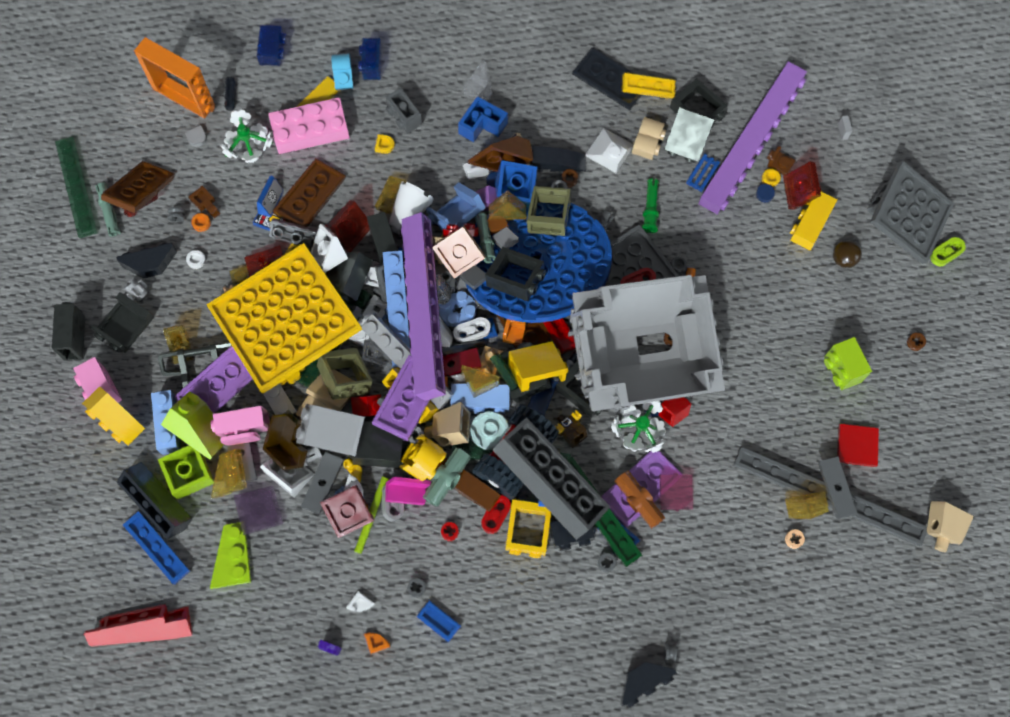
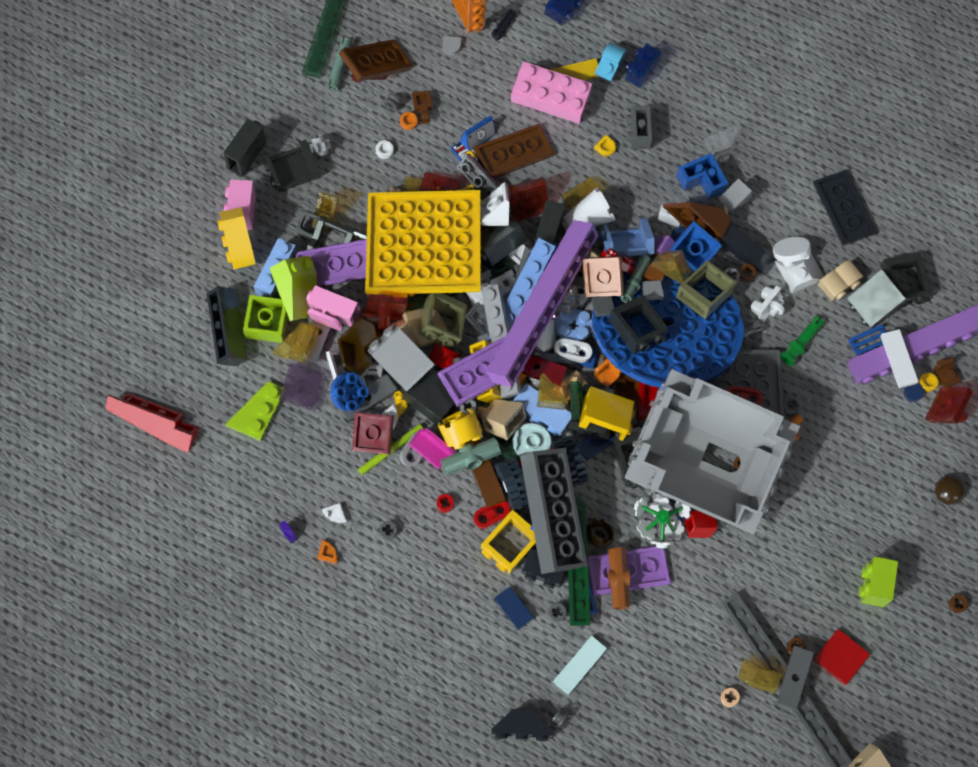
camera: 30 degrees right, 0 degrees up
(148, 261) = (345, 127): black slope -> none
(156, 548) = (204, 365): blue plate -> none
(243, 134) = (490, 67): white plant -> none
(287, 396) = (384, 308): none -> clear red tile
(303, 488) = (348, 391): none -> blue tile
(438, 621) = (388, 569): blue tile -> none
(519, 119) = (736, 195): none -> light grey slope
(568, 583) = (513, 608): none -> dark blue tile
(572, 429) = (602, 484): dark brown piece -> none
(594, 137) = (792, 250): none -> white tile
(597, 478) = (606, 532): none -> dark brown hair
(608, 190) = (771, 305): none -> white hips
(648, 85) = (873, 234): yellow tile -> none
(655, 595) = (579, 665): none -> light aqua tile
(676, 492) = (655, 593): clear pink piece -> none
(739, 172) = (899, 358): none -> white tile
(812, 221) = (938, 441): yellow brick -> none
(818, 455) = (800, 643): none -> reddish brown bush

